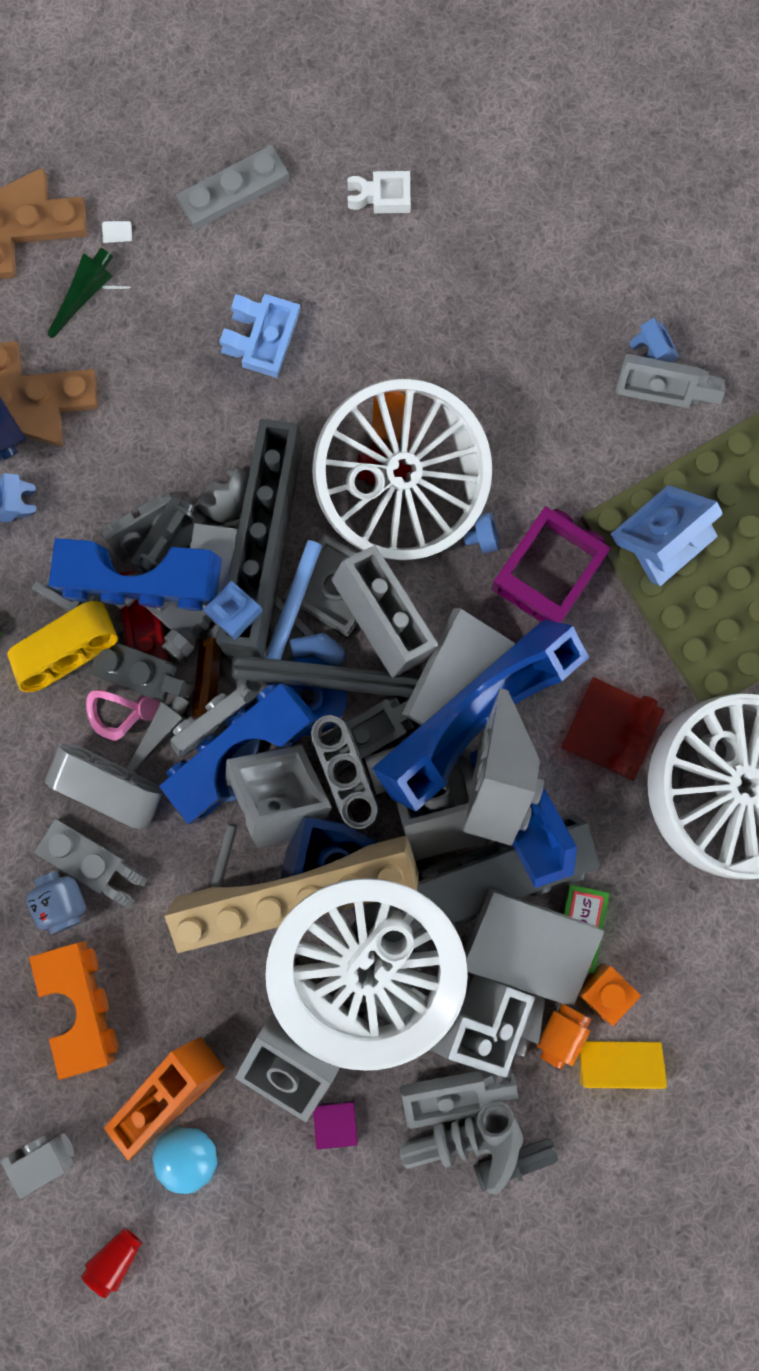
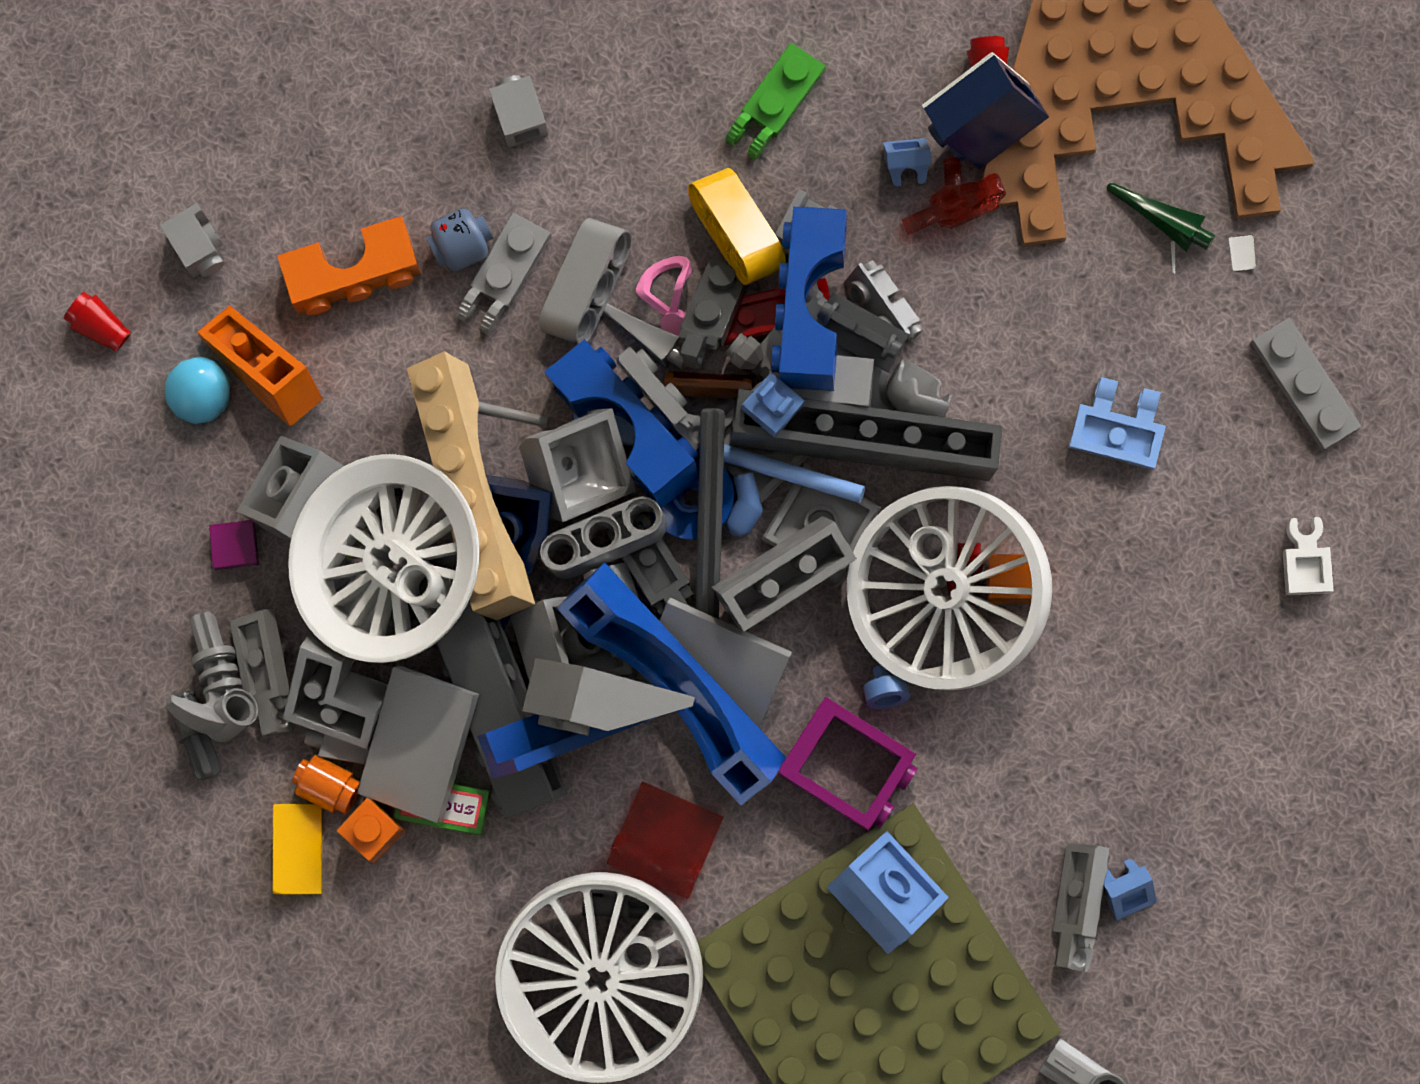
camera: 90 degrees right, 0 degrees up
(55, 456) = (957, 201): none -> clear red piece

